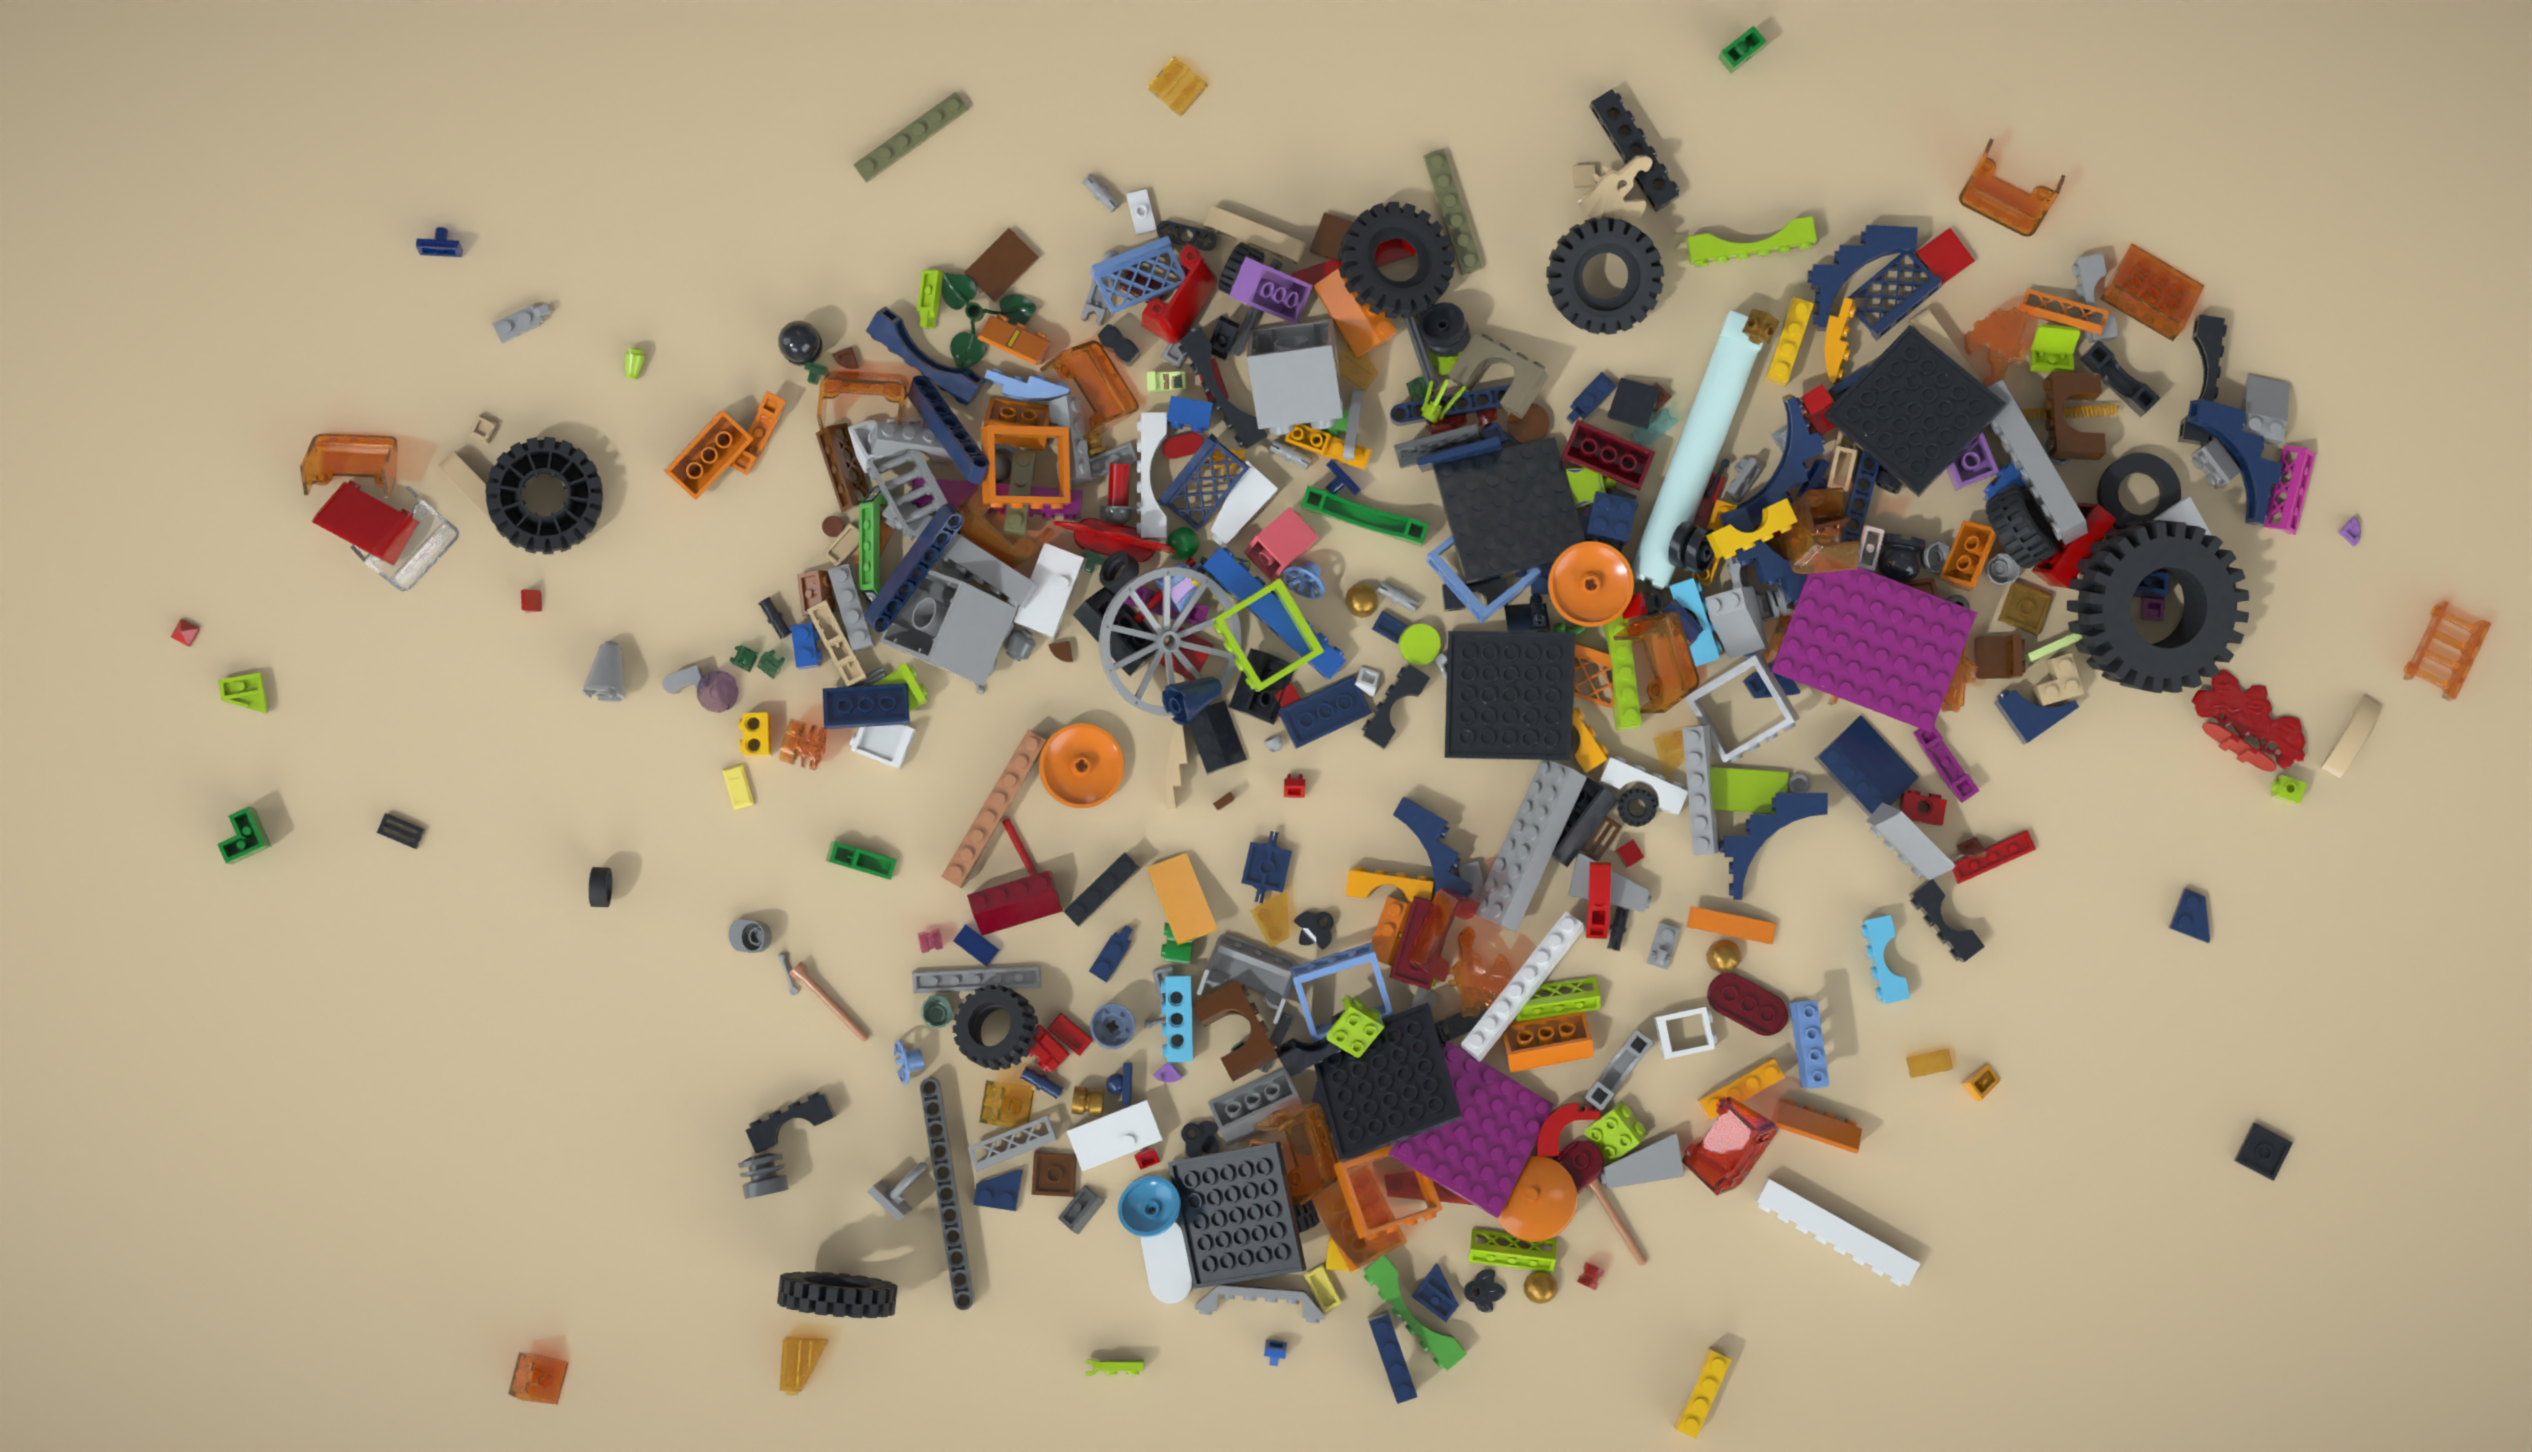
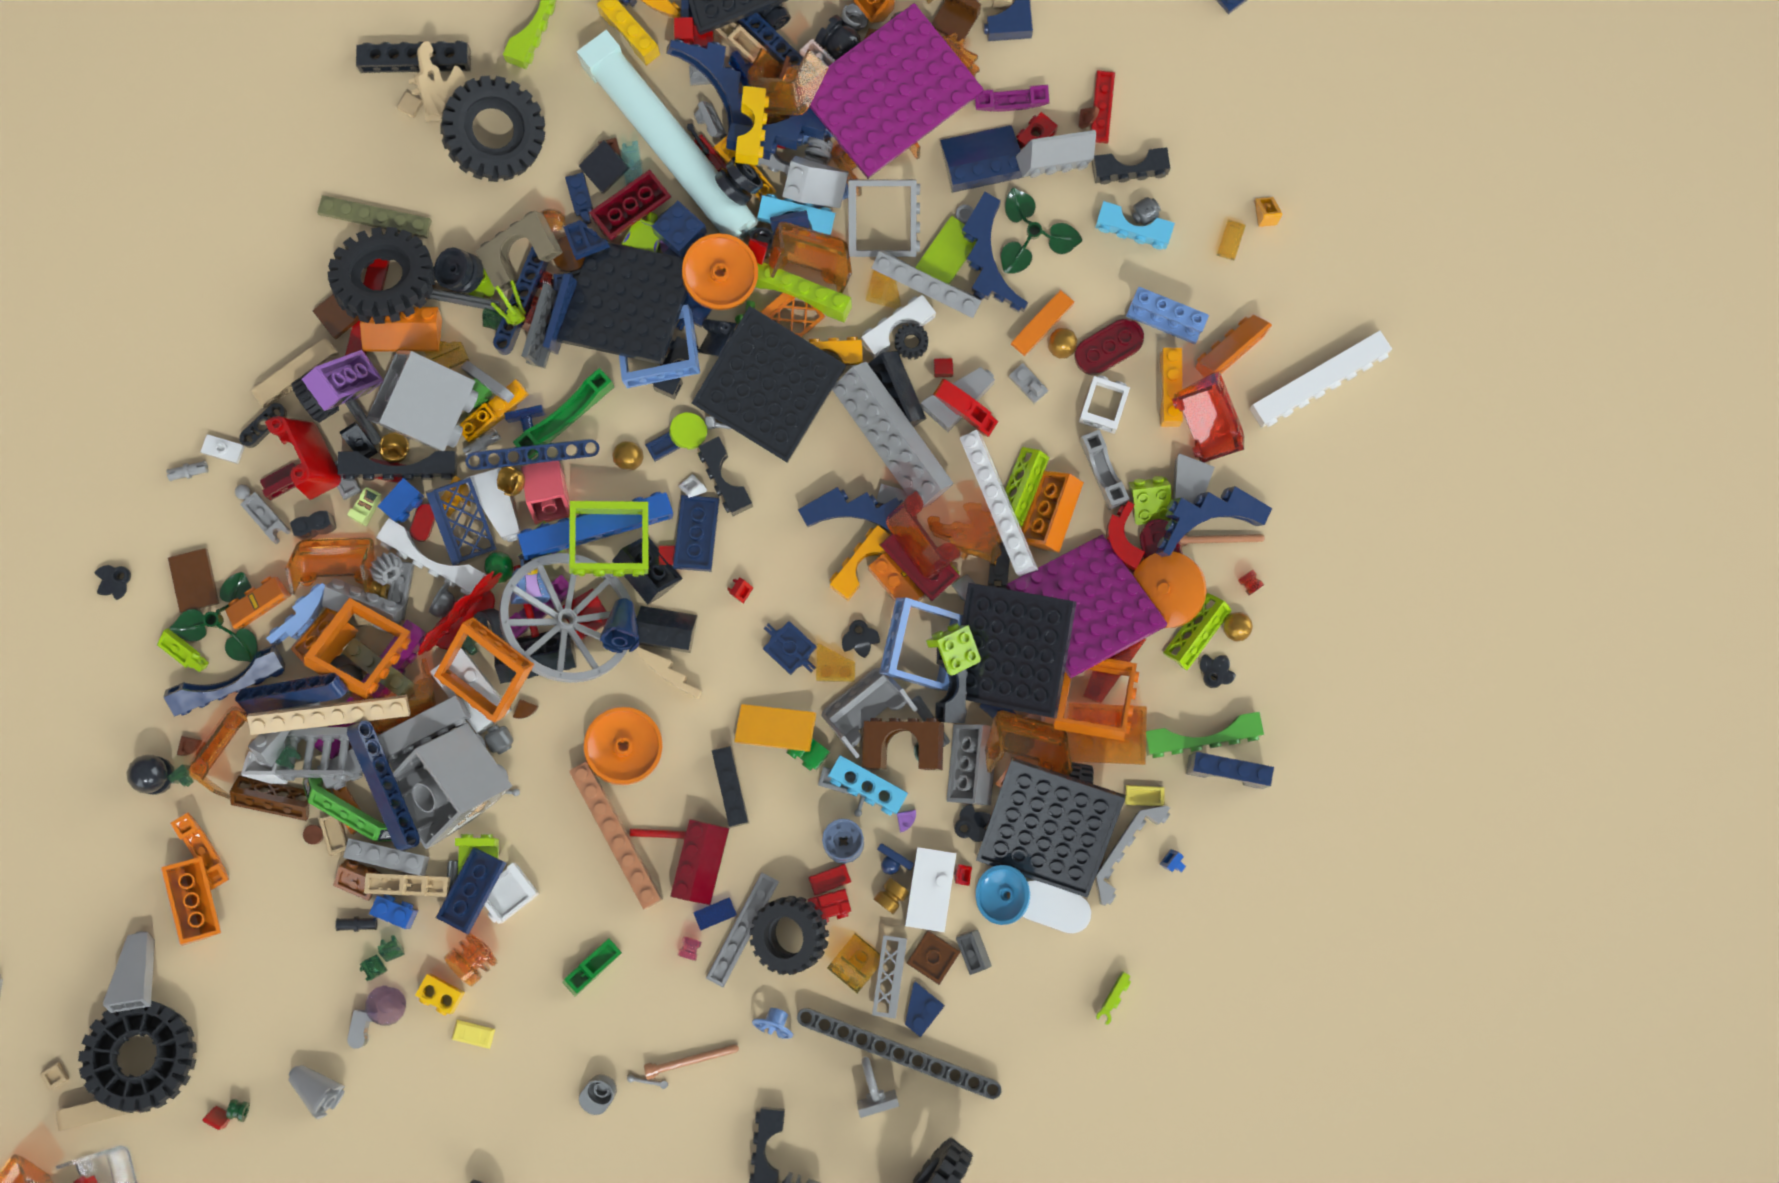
camera: 65 degrees left, 5 degrees down
(548, 615) = (237, 1110): none -> dark green wheel
(610, 446) = (133, 975): none -> light grey slope
(633, 362) = (80, 919): lime cone -> none
(892, 460) = (283, 759): none -> clear green tile
(911, 137) = (47, 593): olive plate -> none
(936, 1011) = (749, 976): sand green hair -> none
(948, 479) = (328, 714): none -> tan plate
(954, 190) = (111, 582): none -> black plate
(1041, 1082) = (854, 924): dark blue pin -> none
(1099, 602) = (499, 649): none -> orange window
(1111, 954) = (786, 809): dark blue hinge -> none
(1117, 441) = (386, 568): none -> light grey gear
(1118, 484) = (419, 587): red brick -> none
(1128, 261) = (252, 477): medium blue fence -> none
(1177, 86) = (144, 365): clear yellow slope -> none
(1224, 801) = (718, 648): reddish brown tile -> none
(1235, 374) = (394, 447): none -> pearl gold hair
(1268, 507) = (510, 480): none -> pearl gold hair
(1274, 743) = (697, 586): light grey hinge -> none
(1304, 502) = (541, 450): none -> dark blue beam
(1306, 577) = (584, 486): medium blue wheel -> none
(1334, 1259) = (1126, 772): yellow slope -> none
(1398, 596) = (641, 426): light grey pin -> none
(1436, 1294) = (1198, 709): dark blue wing -> none
(1547, 430) = (584, 240): none -> dark blue wing
(1552, 388) = (554, 218): none -> clear orange hair
(1591, 852) = (911, 367): reddish brown tile -> none
(1618, 929) = (996, 408): black pin -> none
(1637, 1191) = (1185, 515): none -> dark blue arch
(1707, 1384) = (1399, 562): yellow arch -> none
(1758, 689) = (875, 196): dark blue wing -> none
(1760, 327) = (602, 33): pearl gold brick -> none
(1784, 861) = (1016, 257): none -> dark green plant
(1907, 962) = (1146, 211): none -> dark grey head
(2263, 1151) = (1432, 41): black tile -> none

